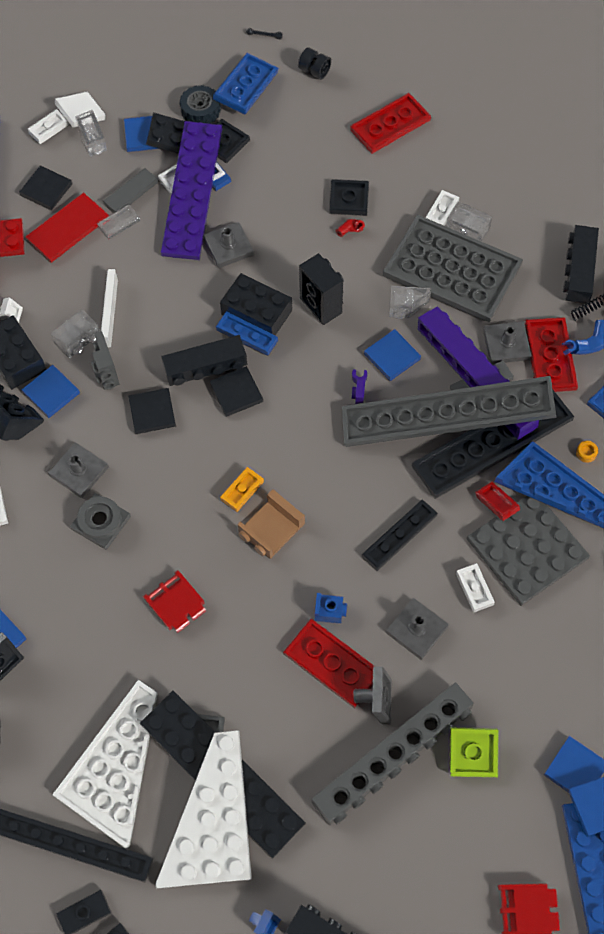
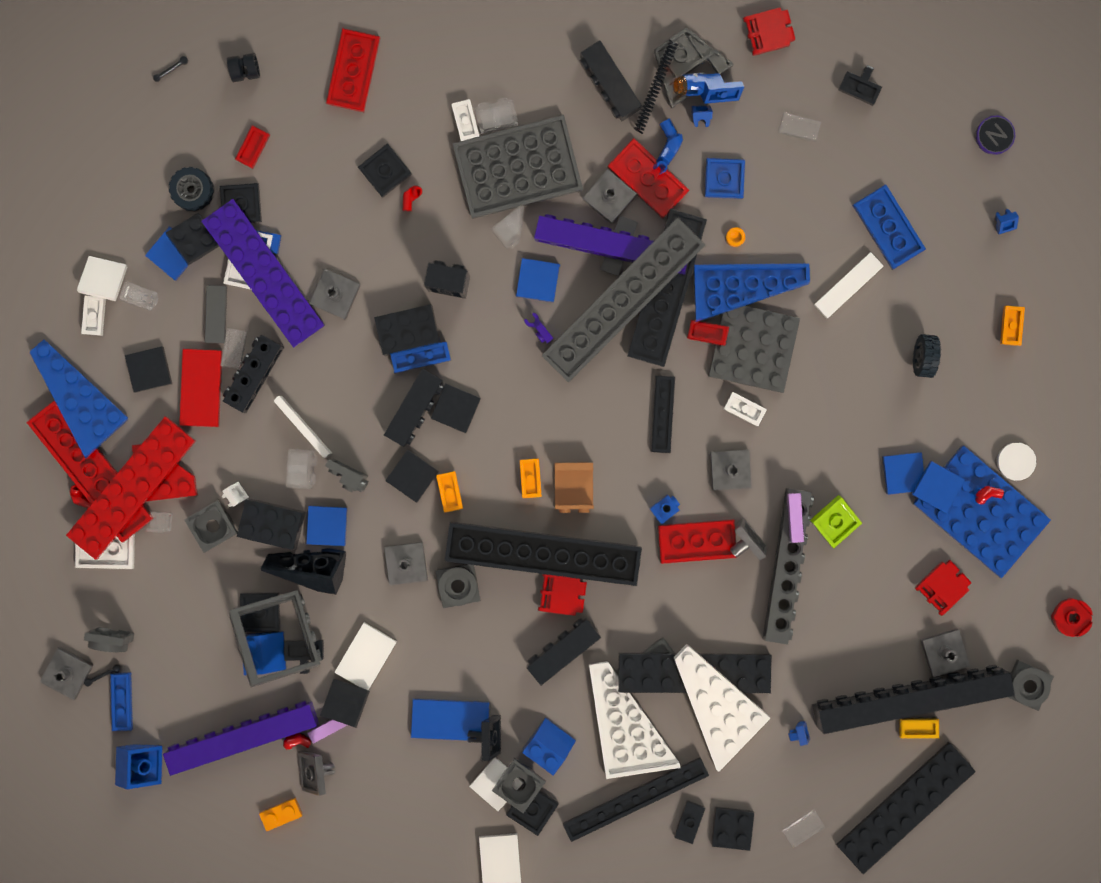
camera: 45 degrees left, 25 degrees up
(34, 719) = (548, 746): none -> blue slope
(113, 245) = (252, 374): none -> black brick
(128, 646) = (563, 651): none -> black brick
(168, 445) = (449, 491): none -> light orange plate
(195, 554) = (543, 553): none -> black brick
(245, 83) = (208, 136): blue tile -> none
(269, 114) = (252, 147): none -> red tile
(438, 709) = (795, 517): none -> lavender piece

